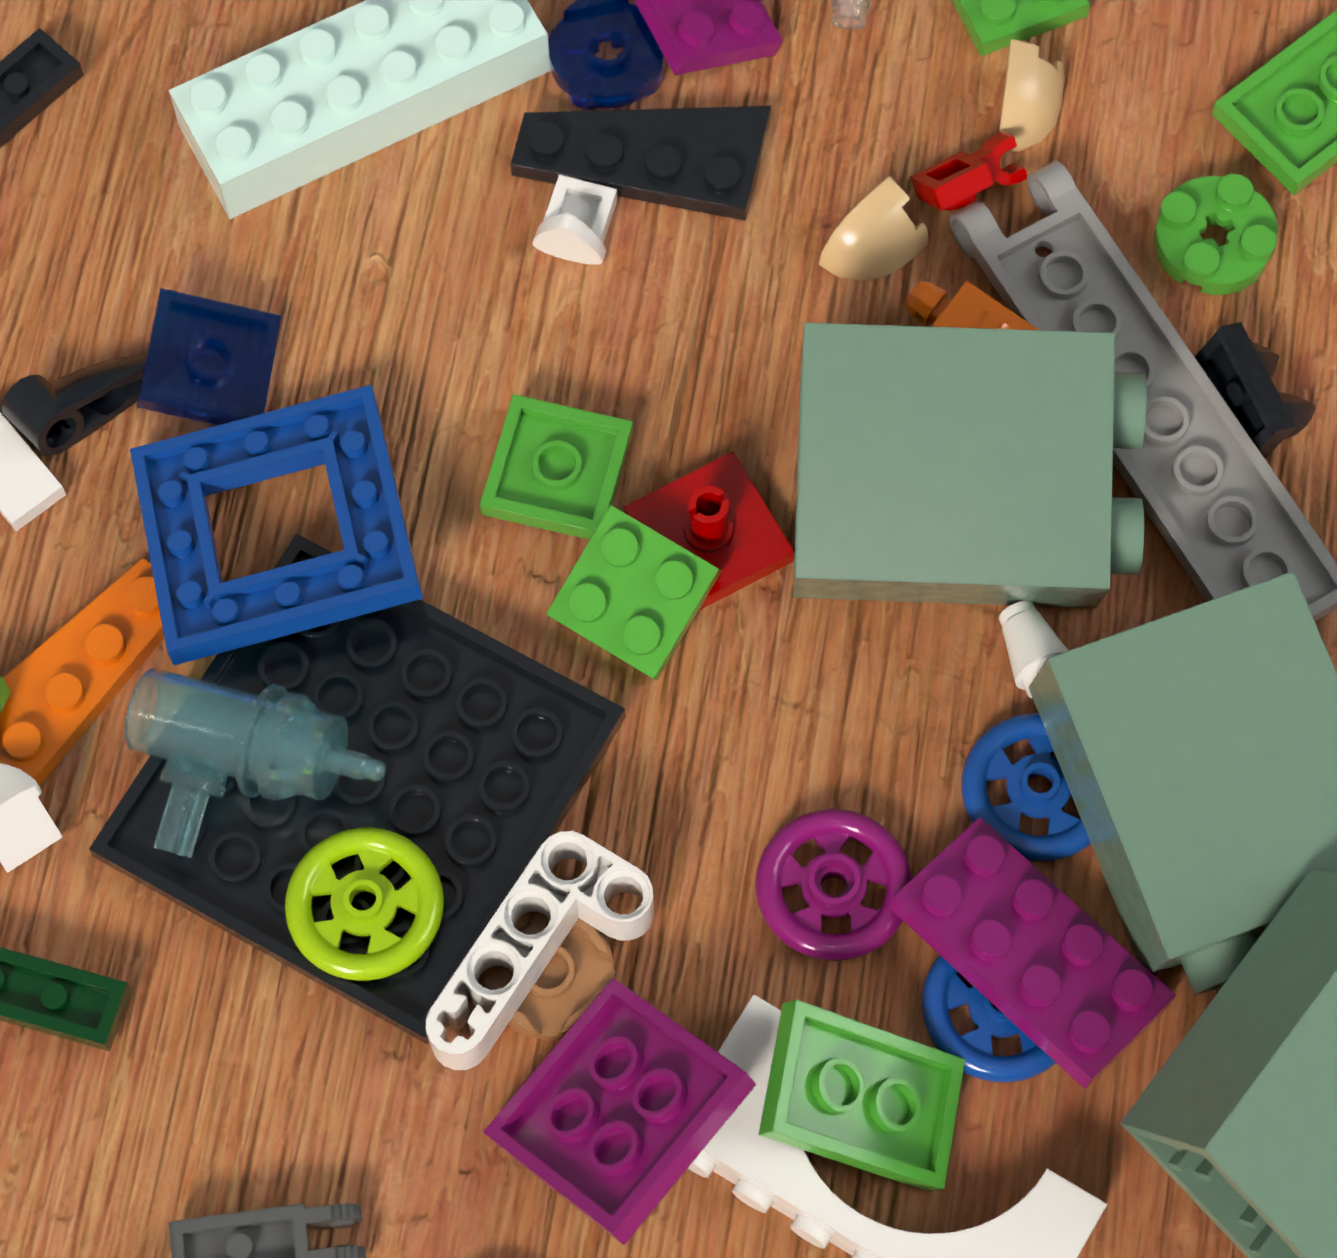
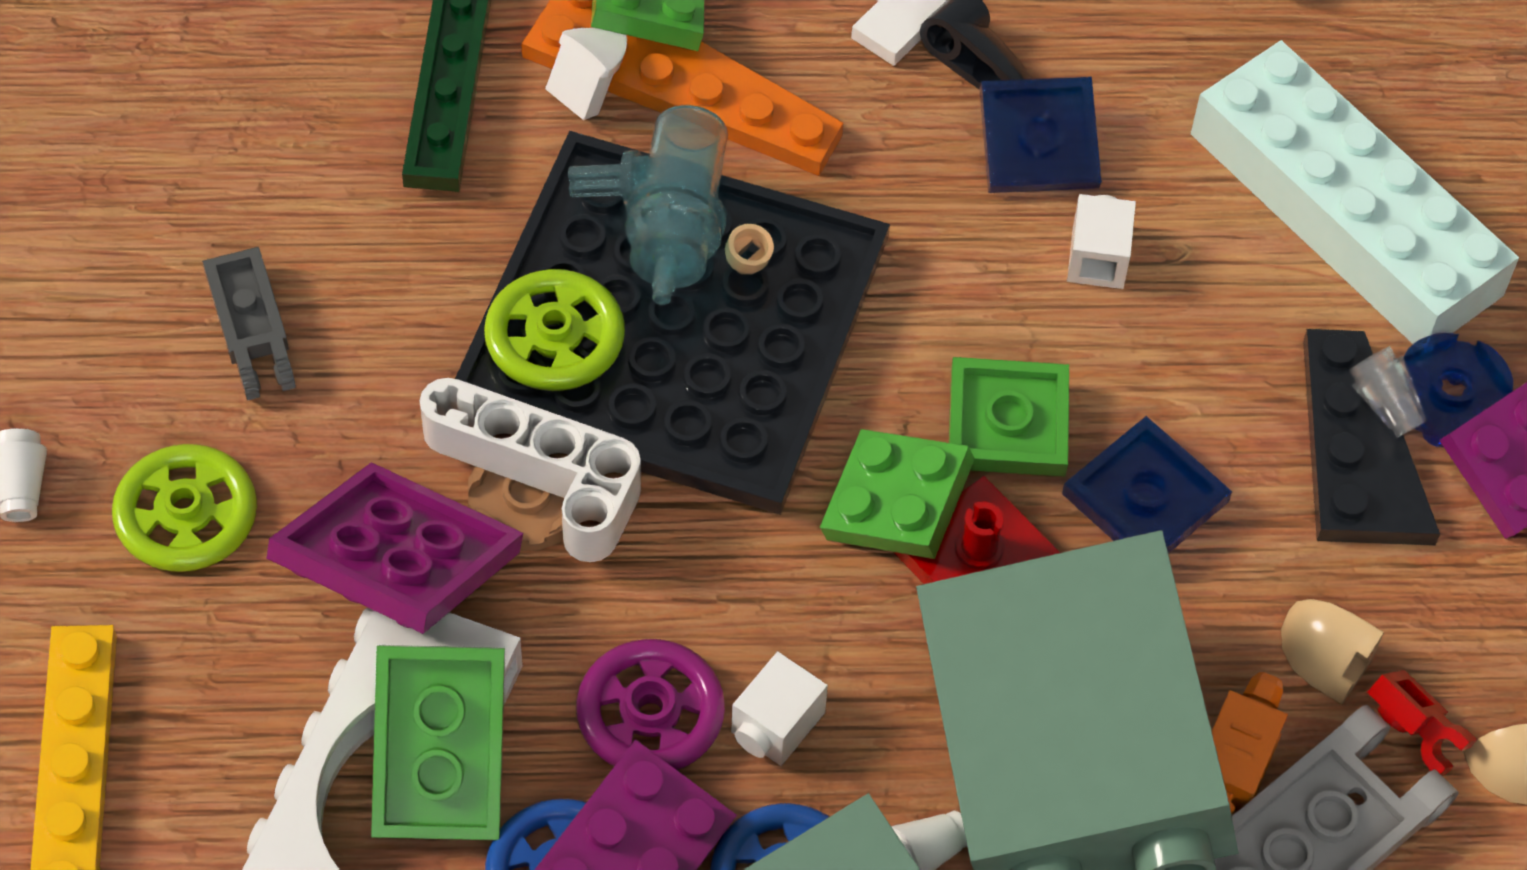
camera: 75 degrees right, 10 degrees down
(215, 616) = (988, 230): blue plate -> none
(321, 671) = (739, 242): none -> light nougat hinge
(361, 330) = (1101, 241): none -> white brick
(577, 221) = (1269, 396): white tile -> none
(614, 102) = (1389, 391): none -> clear cone
(672, 358) = (1146, 487): none -> clear blue plate
(865, 757) = (778, 709): none -> white brick

